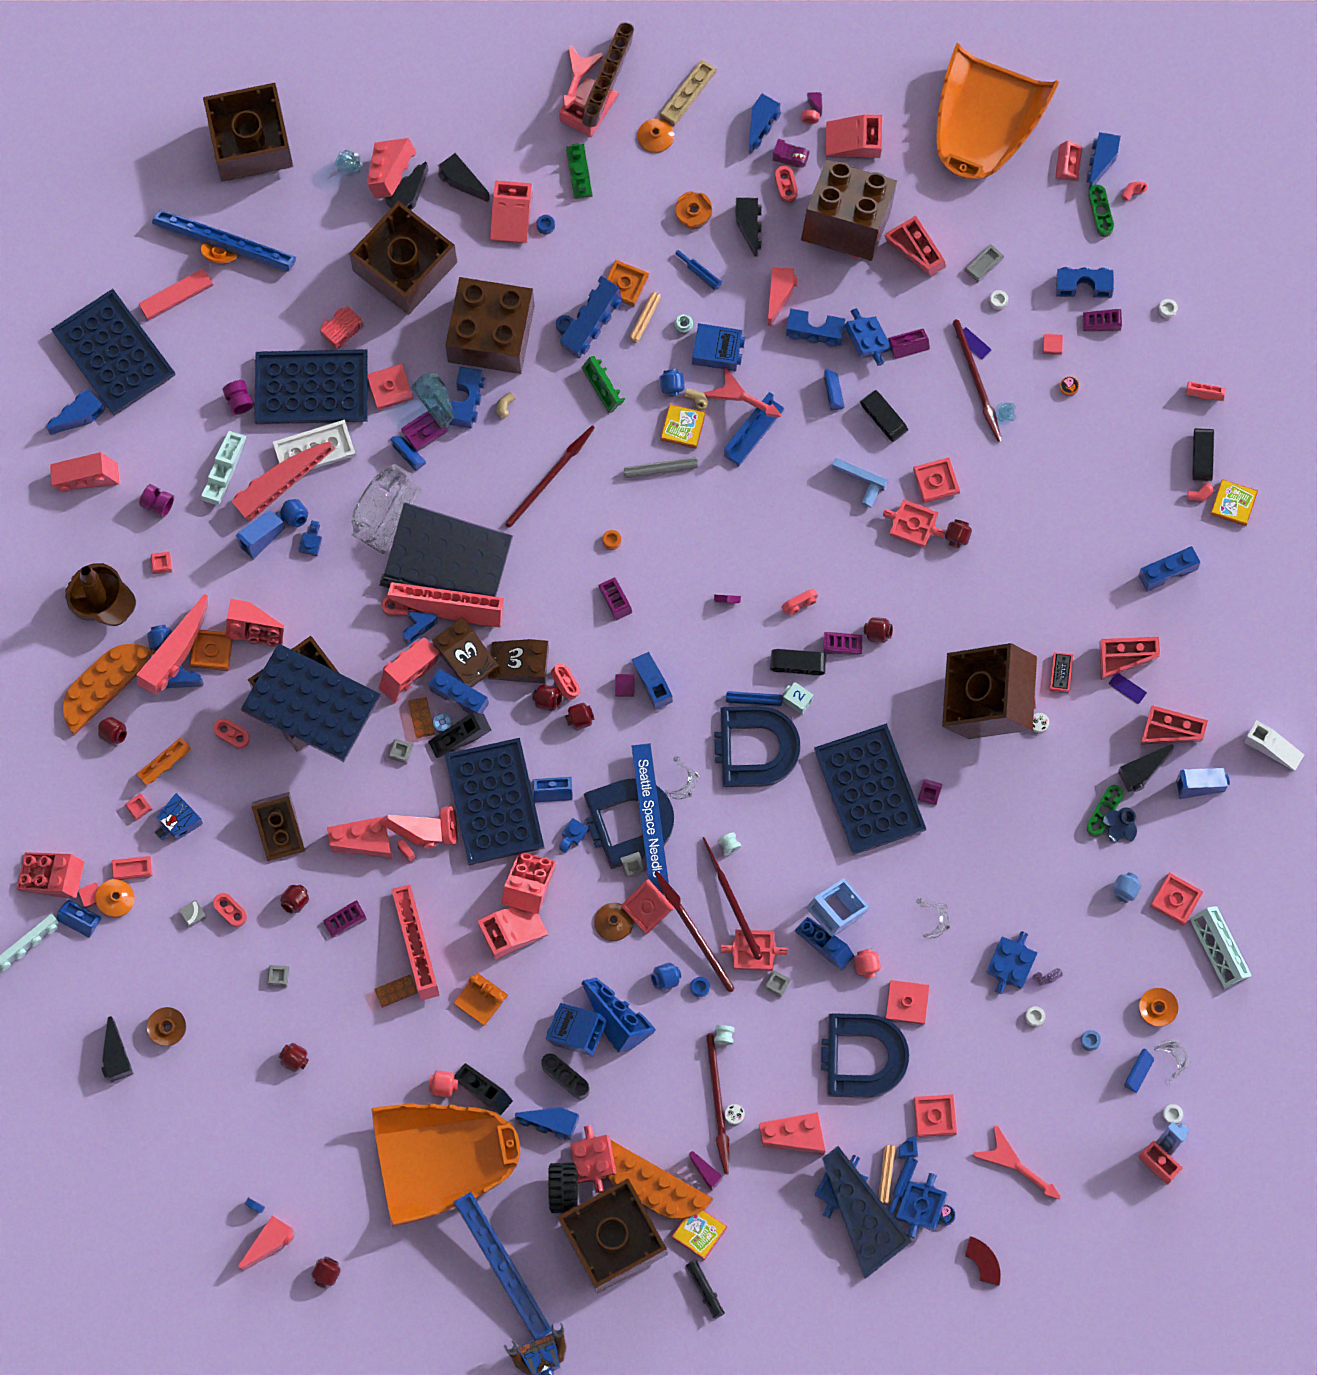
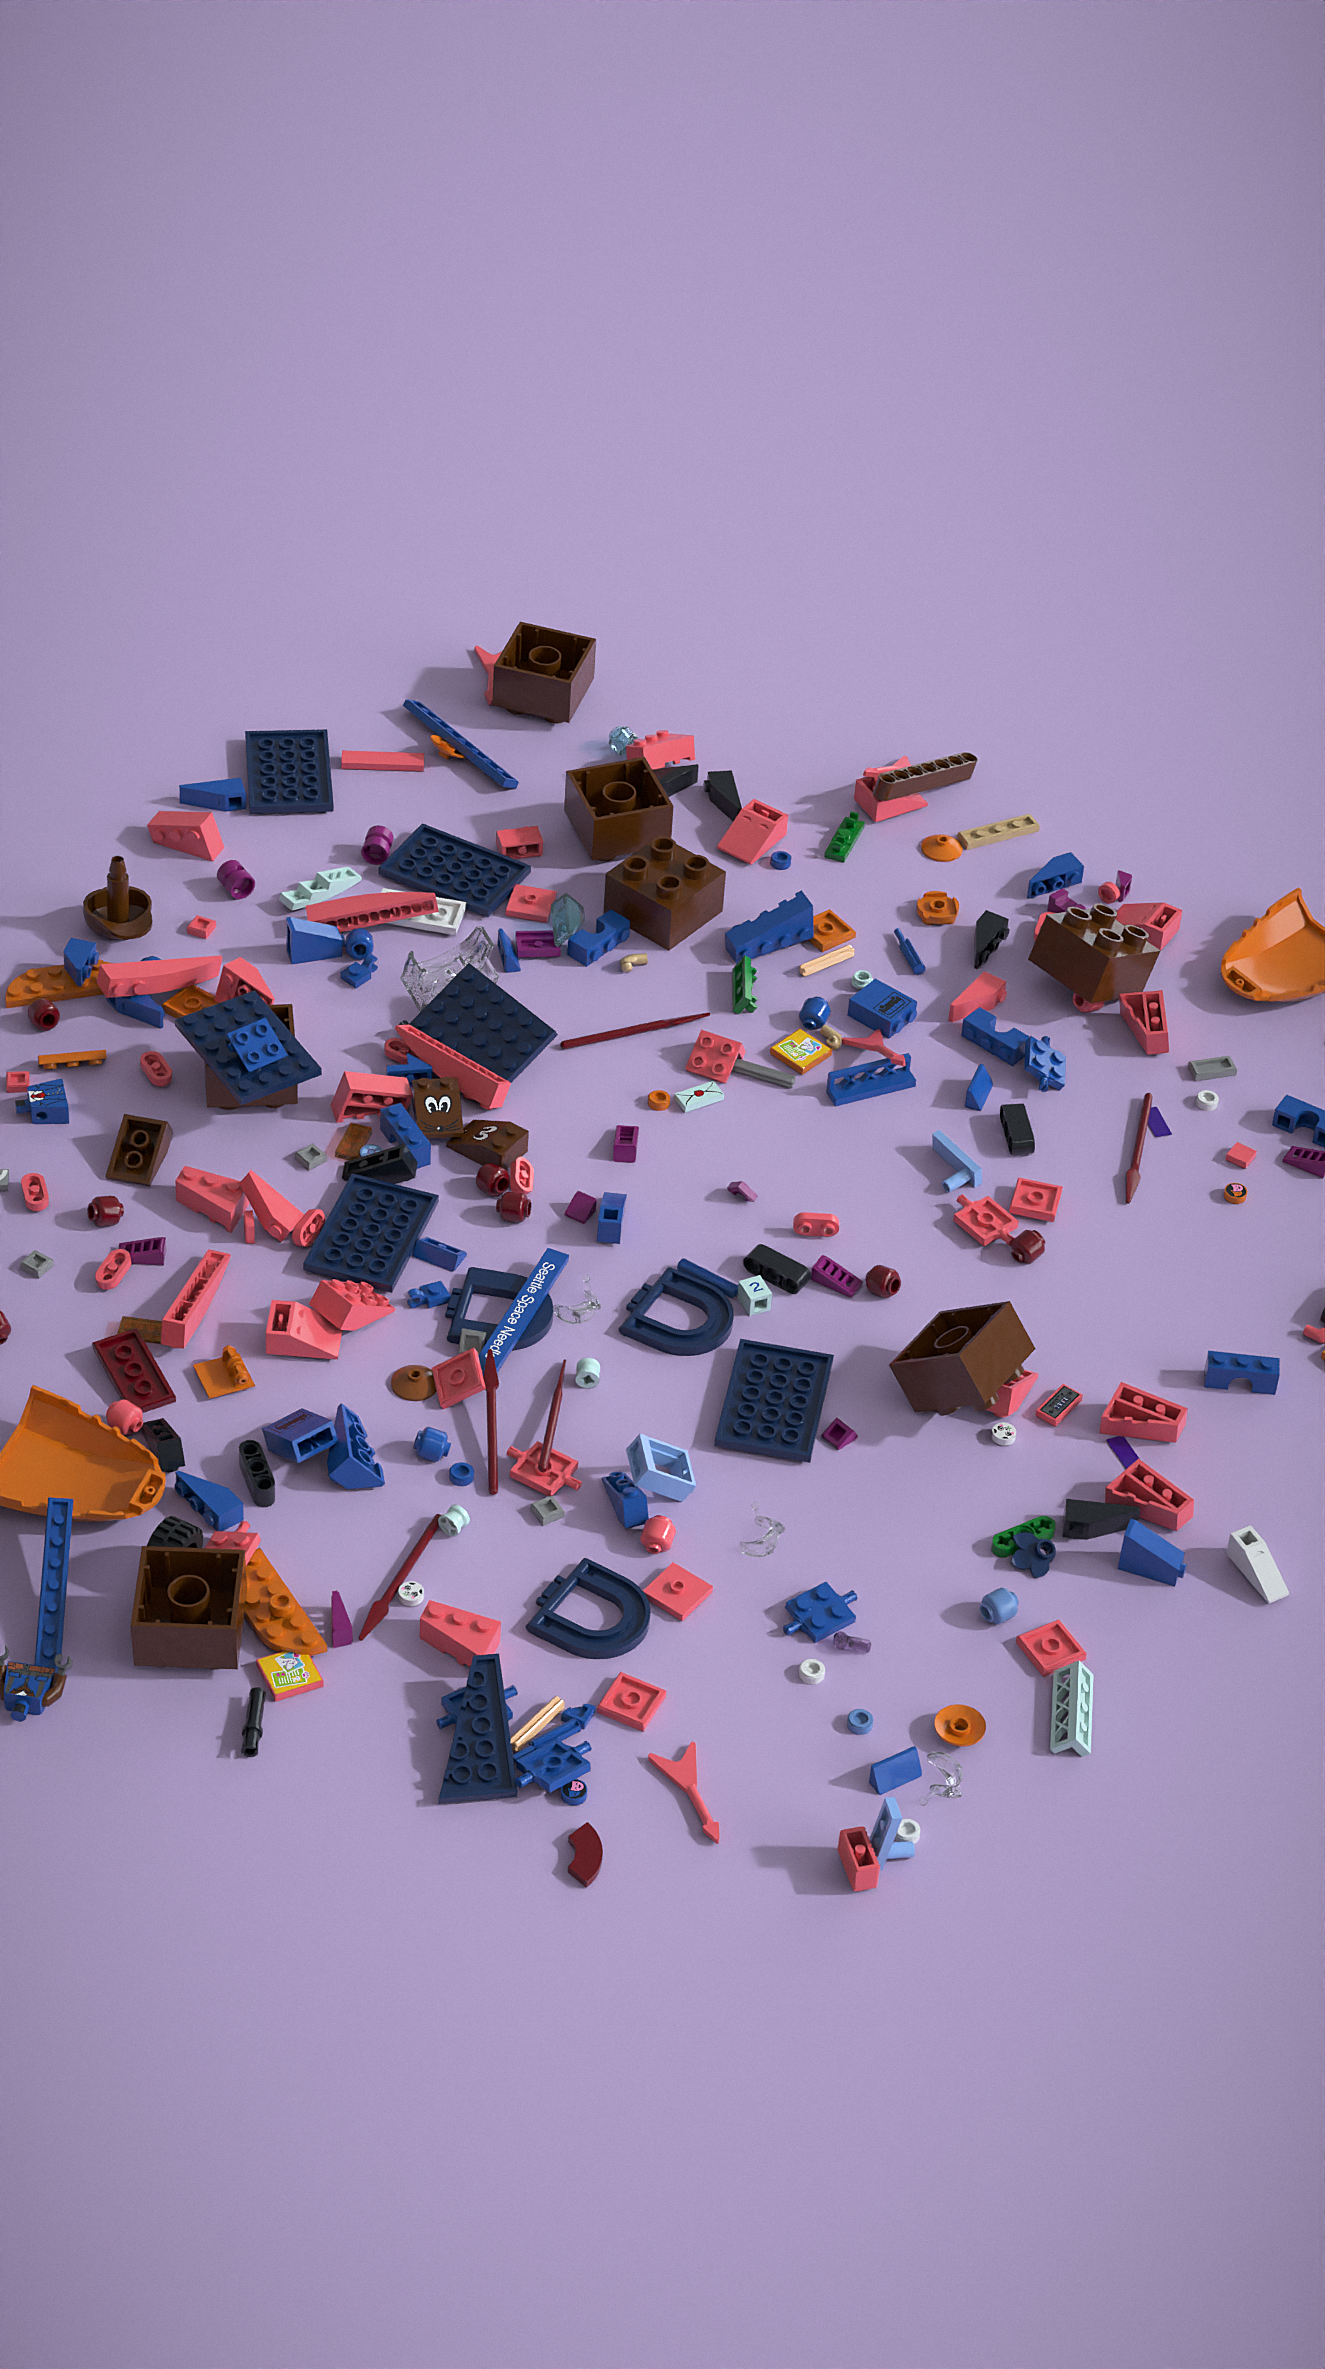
camera: 25 degrees right, 30 degrees down
(103, 664) = (79, 959): none -> blue slope
(187, 128) = (488, 661): none -> coral piece
(325, 707) = (256, 1045): none -> blue hinge
(336, 951) = (111, 1273): none -> coral plate
(418, 1035) = (134, 1370): none -> dark red tile
(627, 473) = (714, 1056): none -> coral bracket
(638, 518) = (699, 1096): none -> light aqua tile
(663, 1185) = (281, 1604): none -> orange tile
(909, 343) = (1086, 1092): magenta slope -> none
(1006, 407) = (1152, 1182): clear light blue plate -> none

